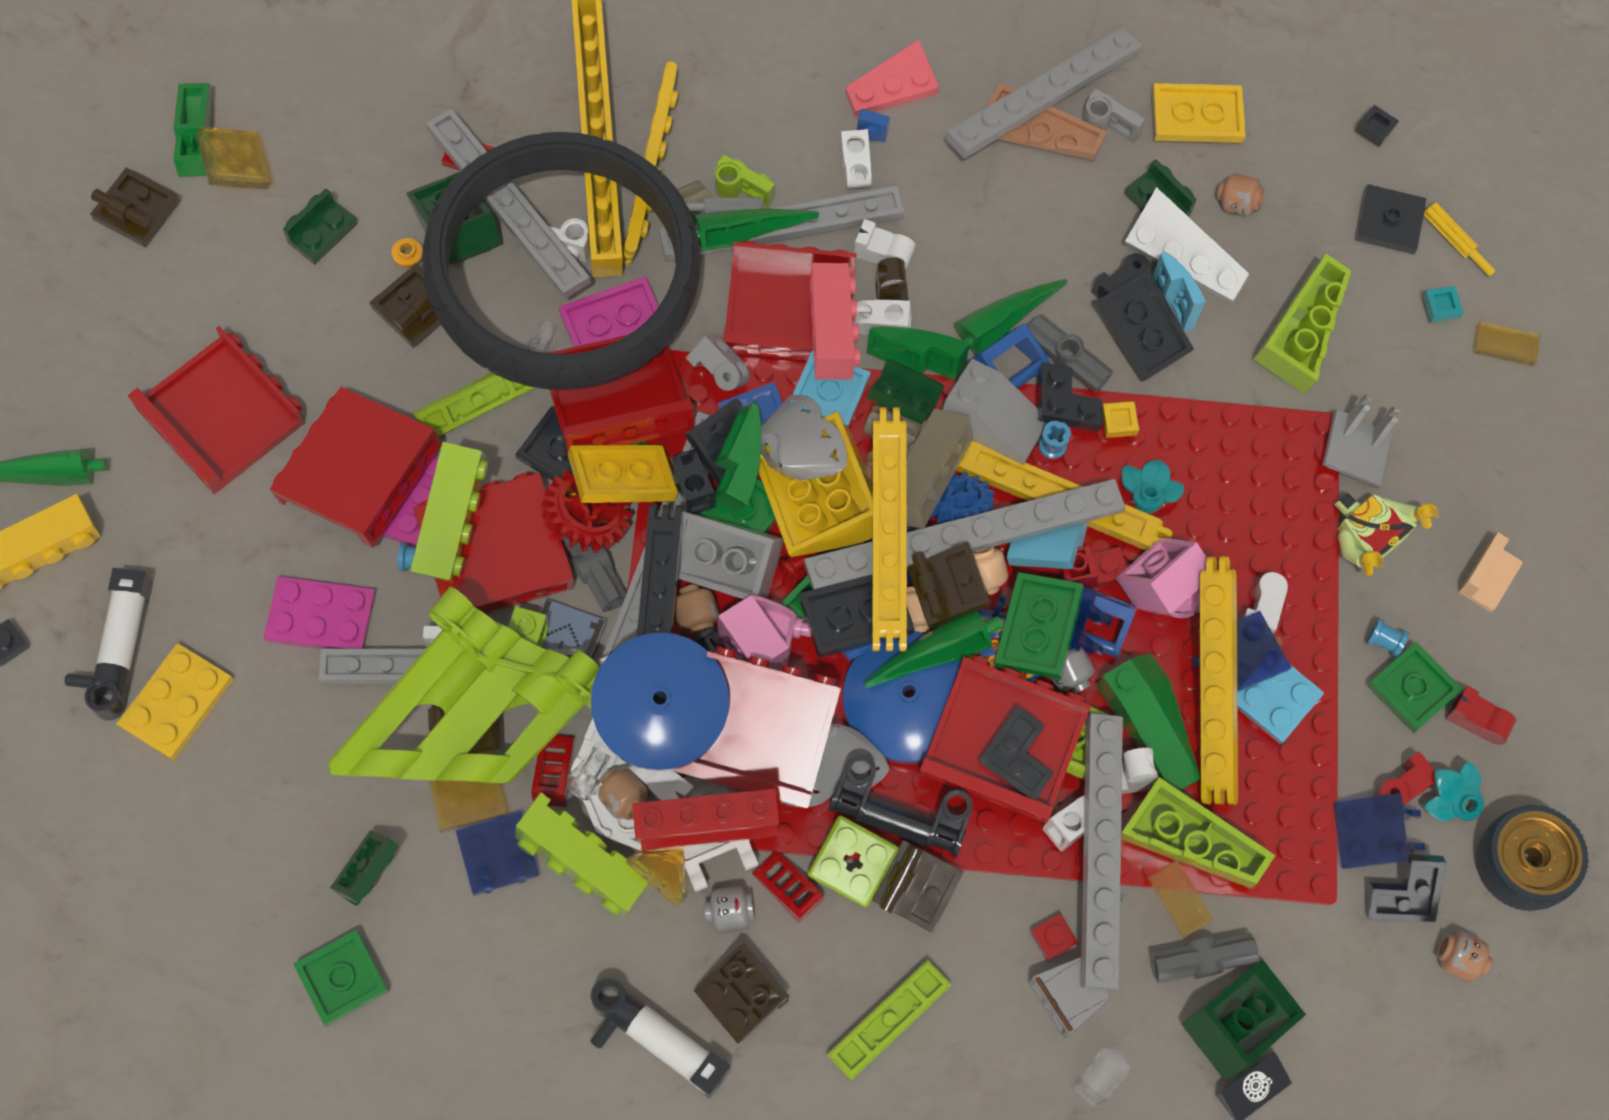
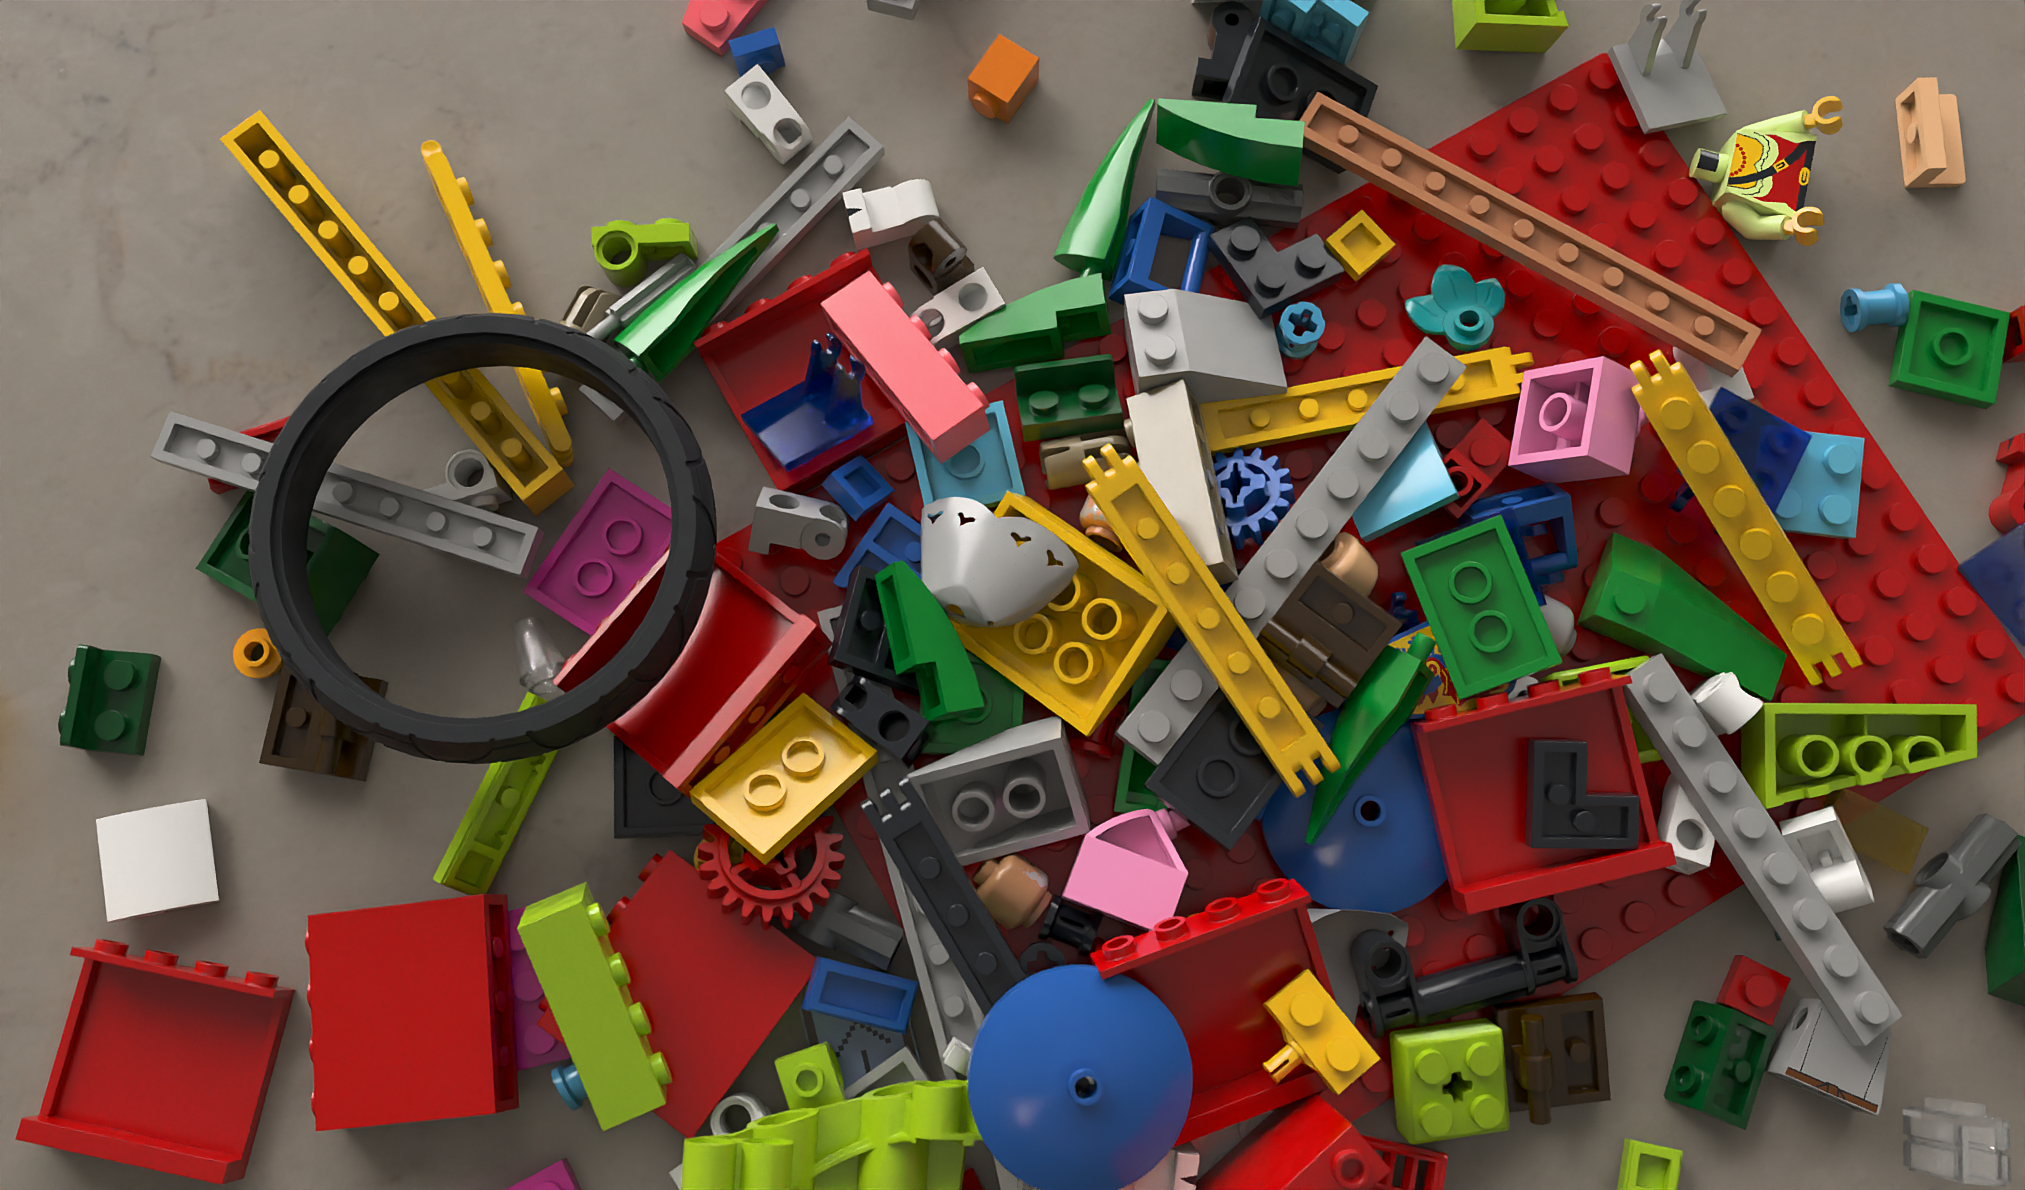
camera: 30 degrees left, 10 degrees up
(286, 316) = (157, 860): none -> white slope
(581, 609) = (860, 995): none -> blue tile
(764, 366) = (858, 487): none -> blue plate
(770, 316) = (814, 412): none -> clear blue plate
(795, 767) = (1316, 1035): none -> yellow plate
(992, 219) = (1002, 79): none -> orange brick
(1007, 958) = (1720, 1063): none -> dark green bracket
(1089, 321) = (1232, 139): none -> green slope
(1140, 890) = (1829, 858): none -> white plate
(1211, 468) = (1528, 236): none -> nougat plate

